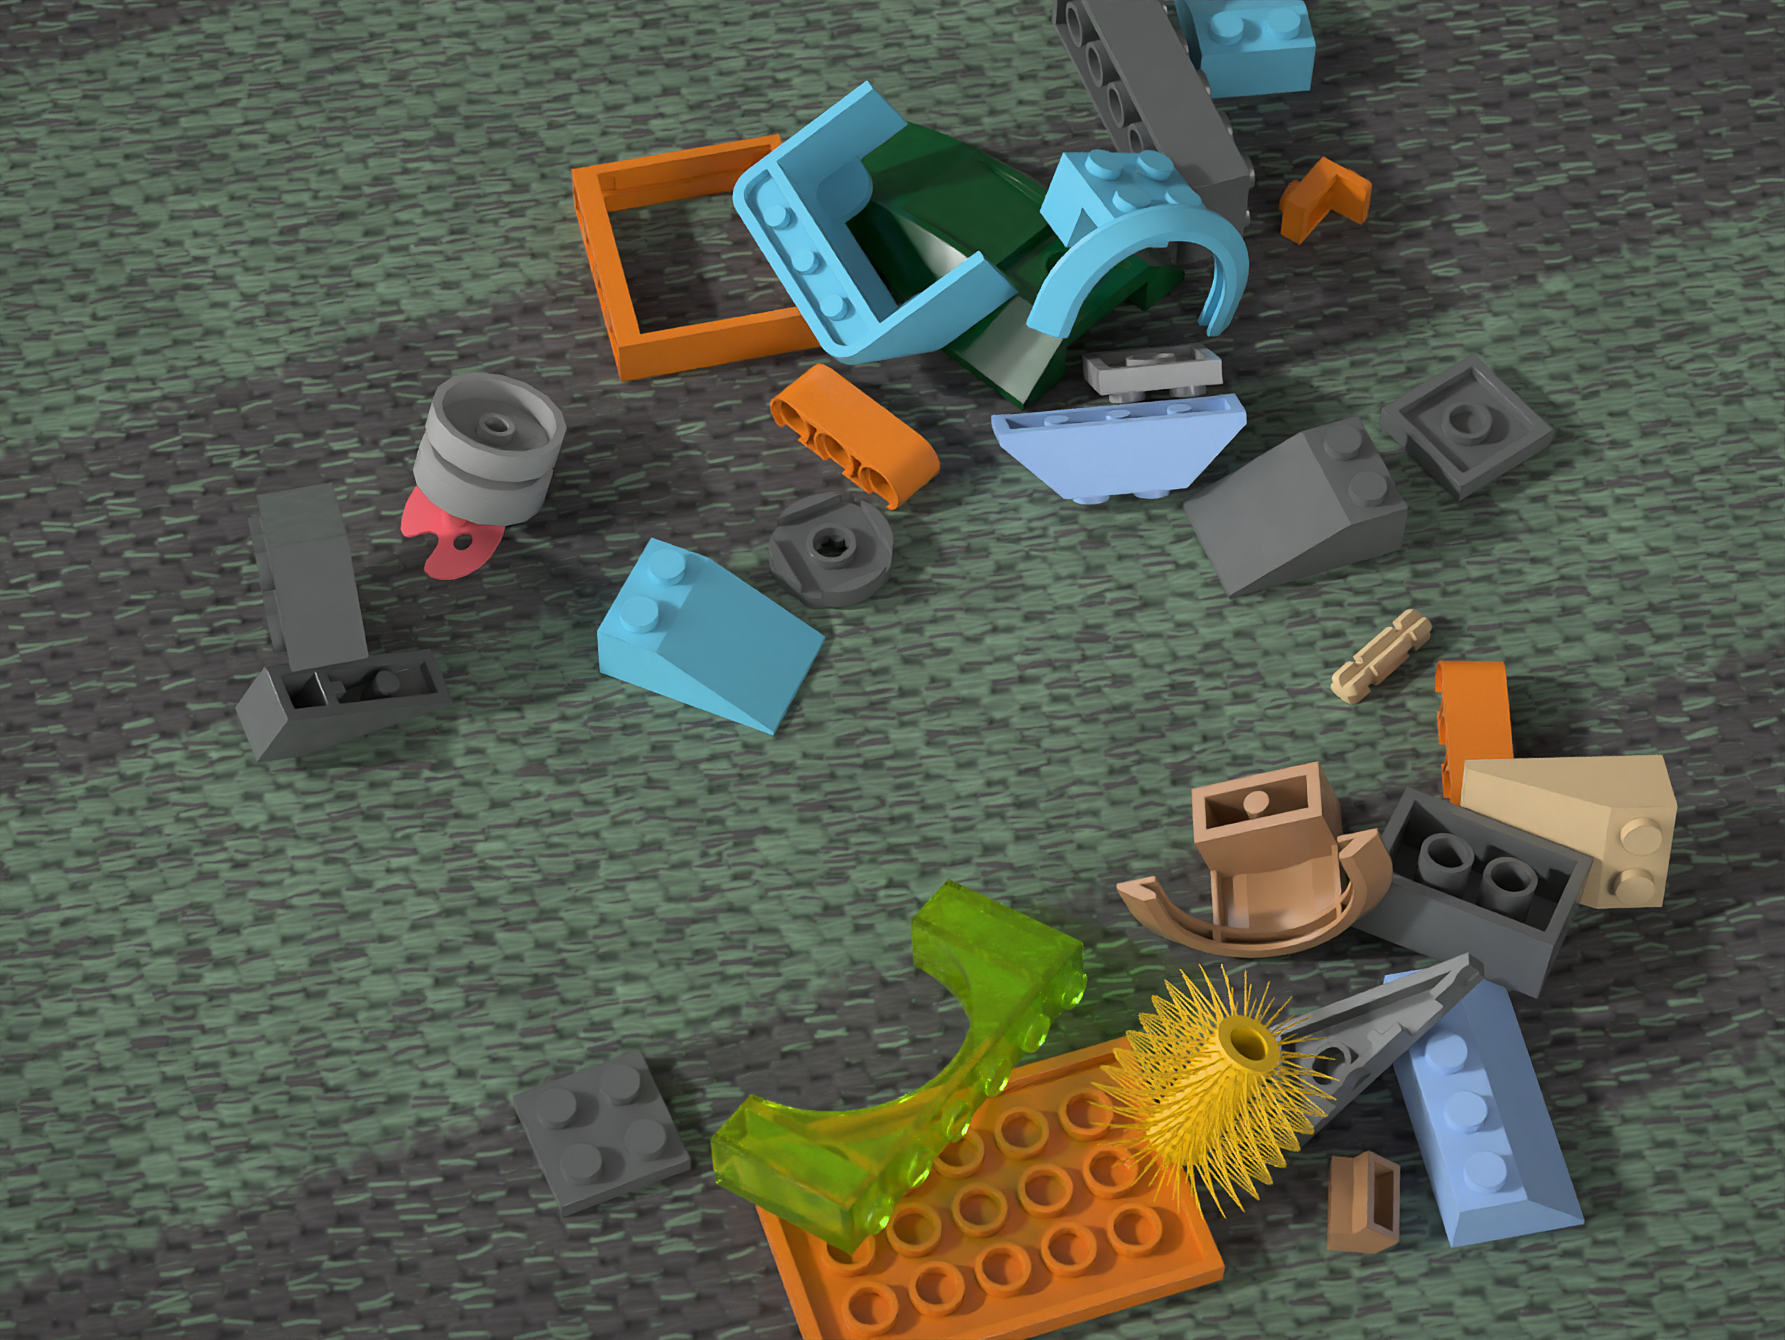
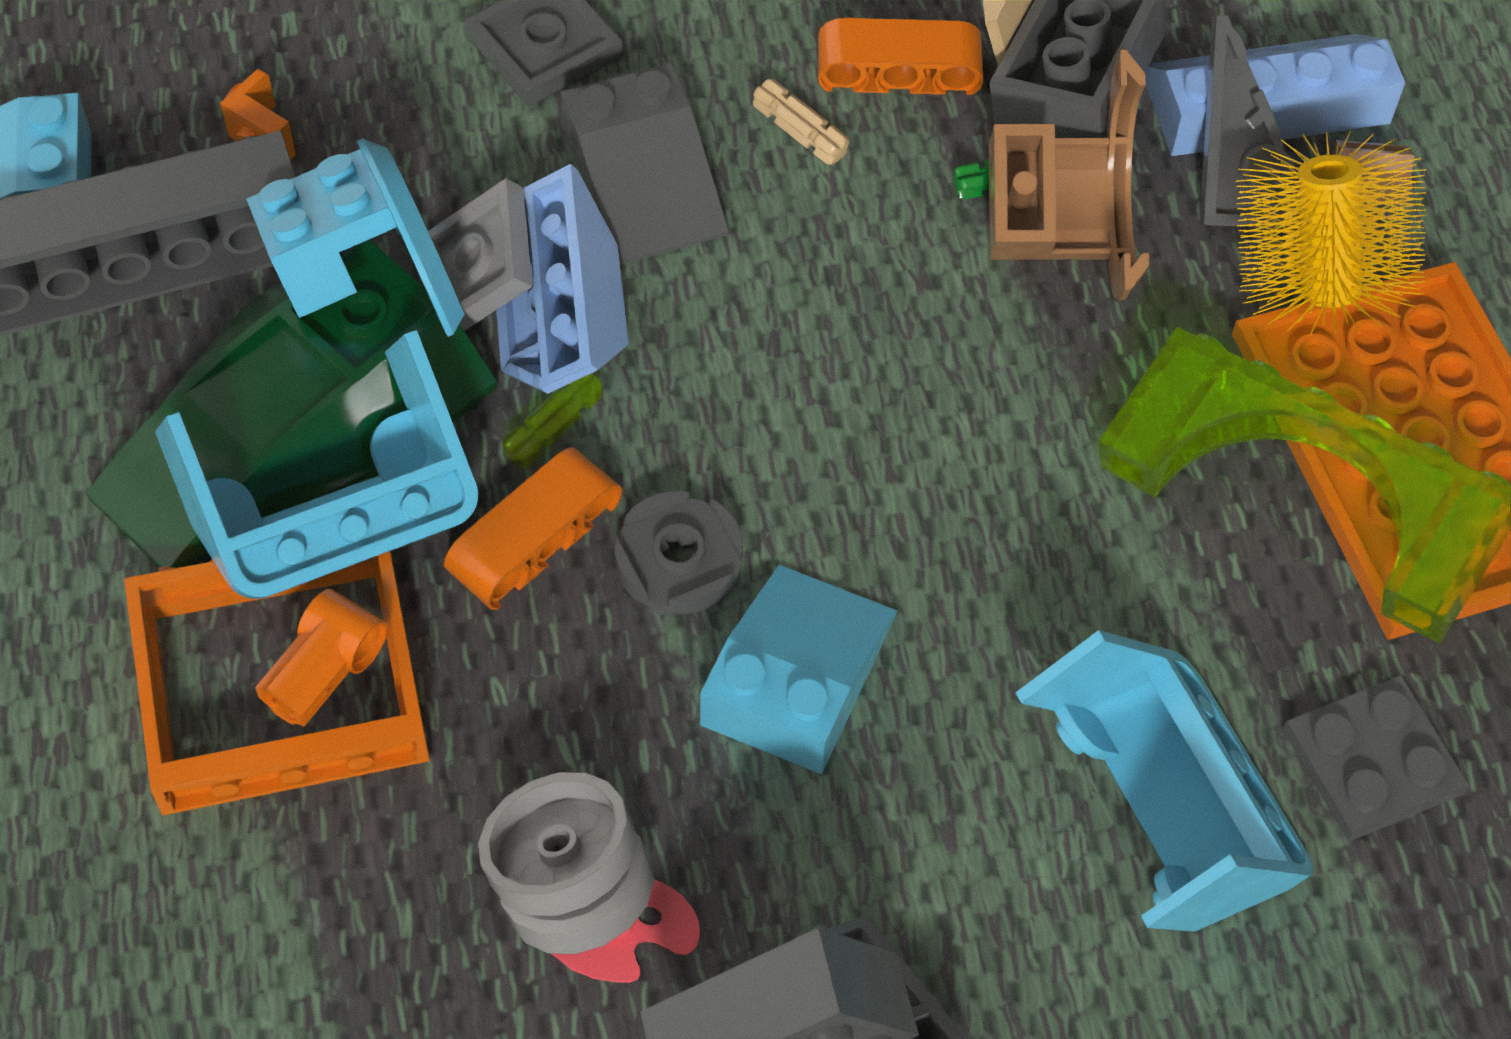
camera: 90 degrees left, 5 degrees up
(578, 966) = (1180, 773): none -> medium azure windscreen
(700, 269) = (330, 643): none -> orange piece
(983, 452) = (551, 420): none -> clear neon green axle

